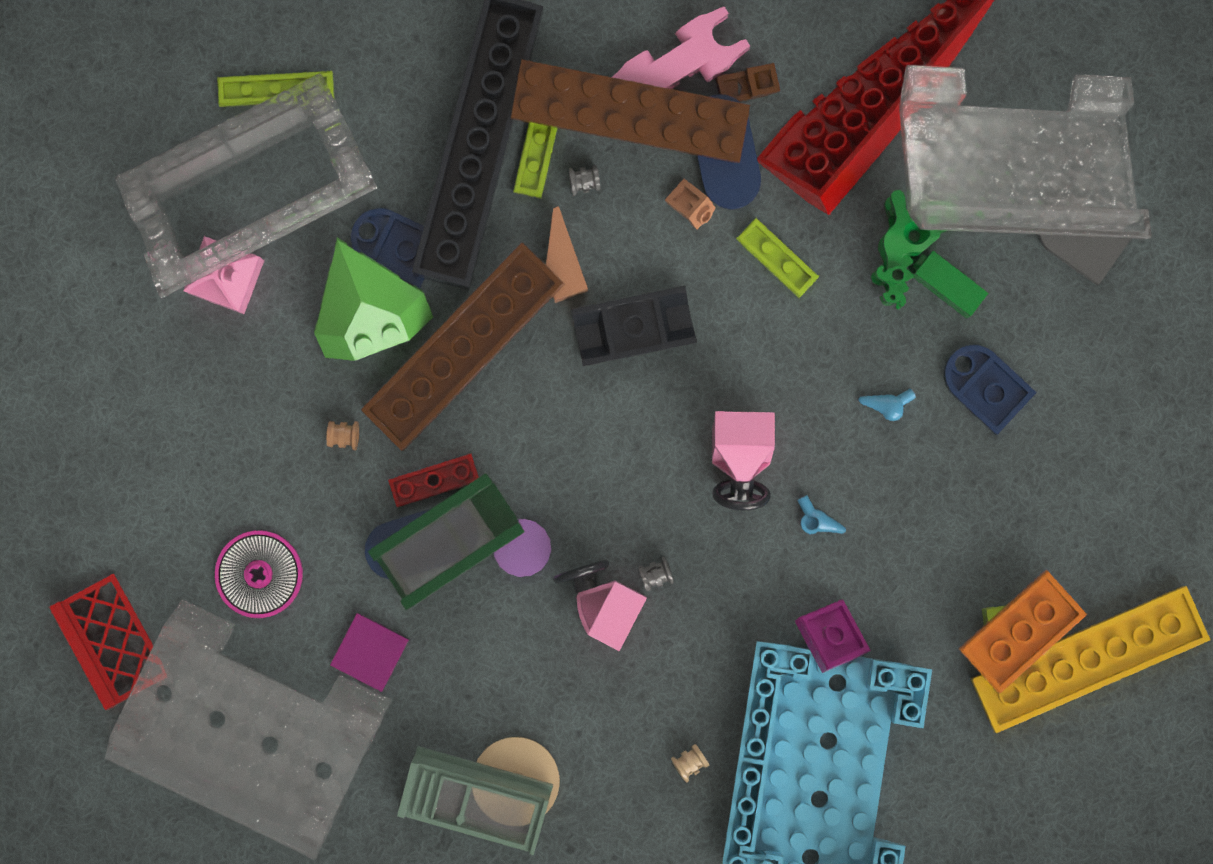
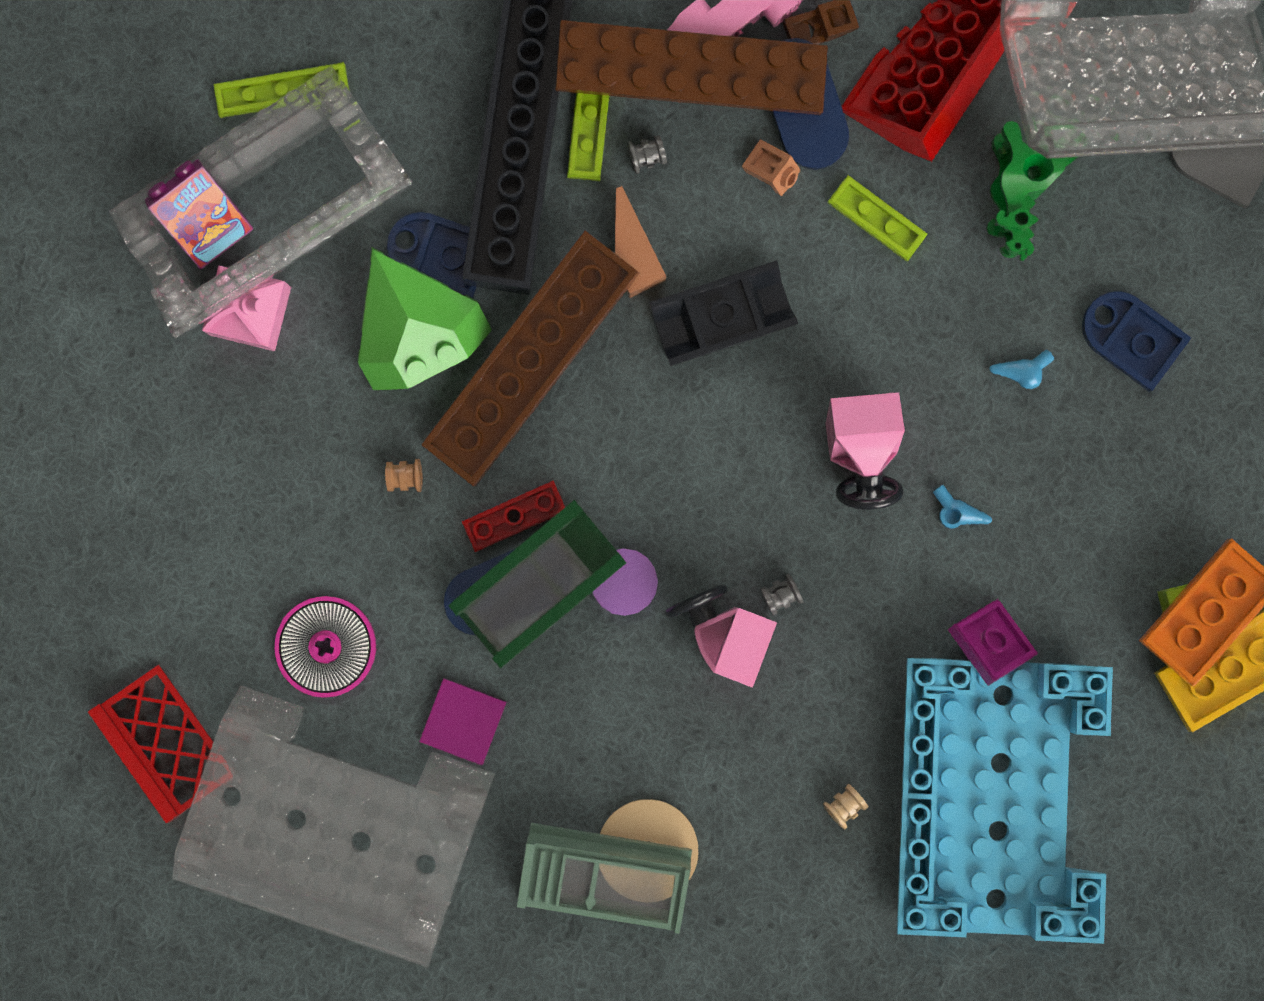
camera: 10 degrees left, 0 degrees up
(191, 189) = (197, 213): none -> brick
(949, 284) = (1077, 225): green brick -> none

